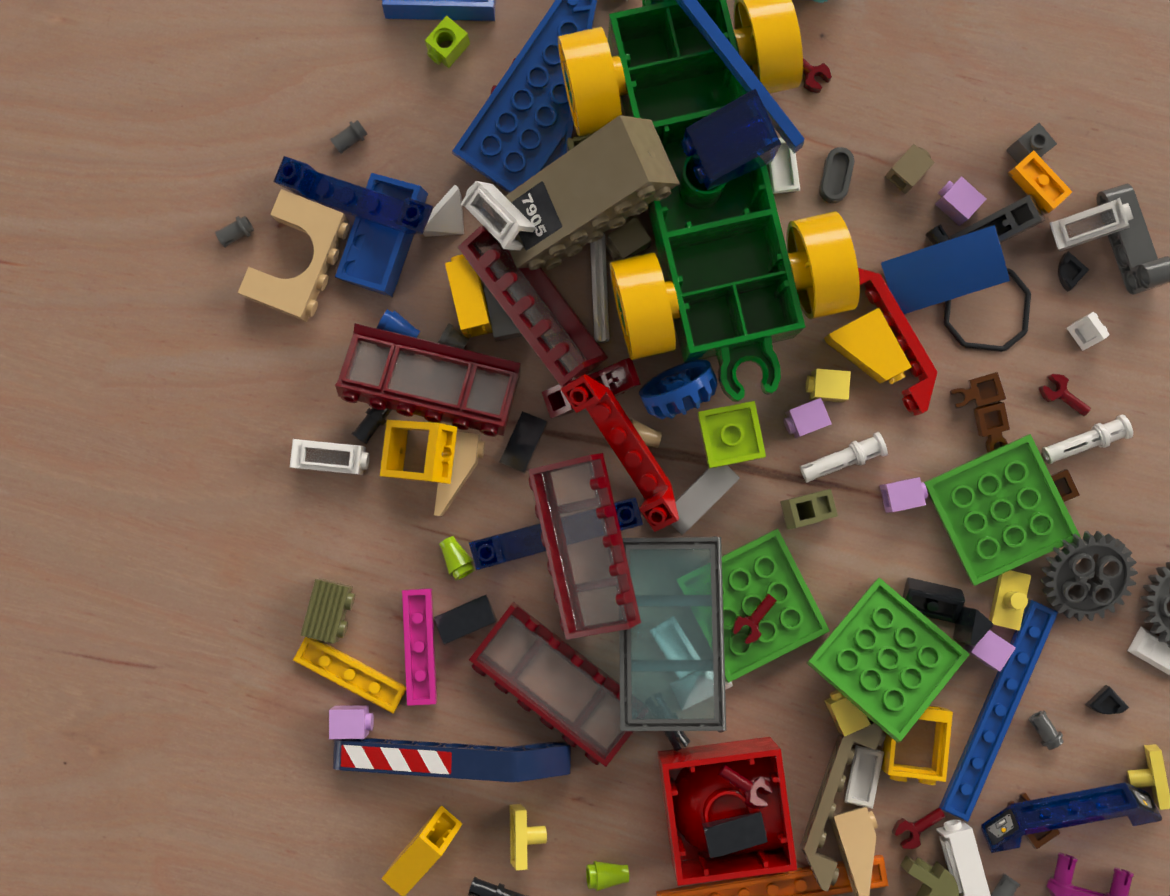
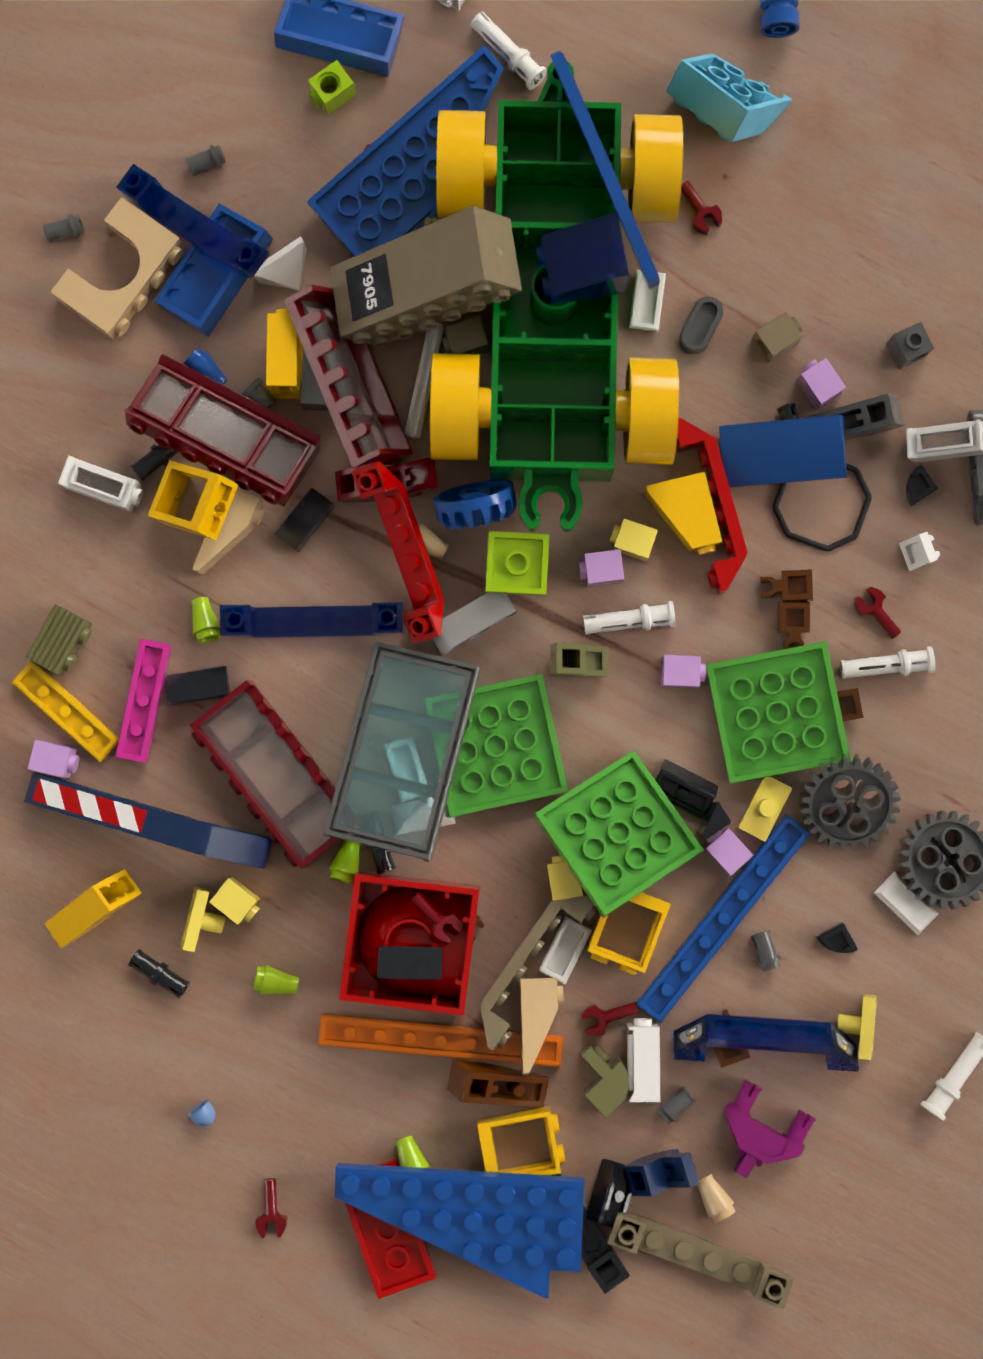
camera: 20 degrees right, 0 degrees up
(496, 214) = (332, 276): white window -> none
(552, 810) = (236, 901): none -> light yellow brick
(584, 547) = (336, 637): window -> none
(643, 749) = (345, 862): none -> lime cone
(754, 619) = (493, 758): dark red bar -> none
(1040, 181) = (905, 384): light orange tile -> none

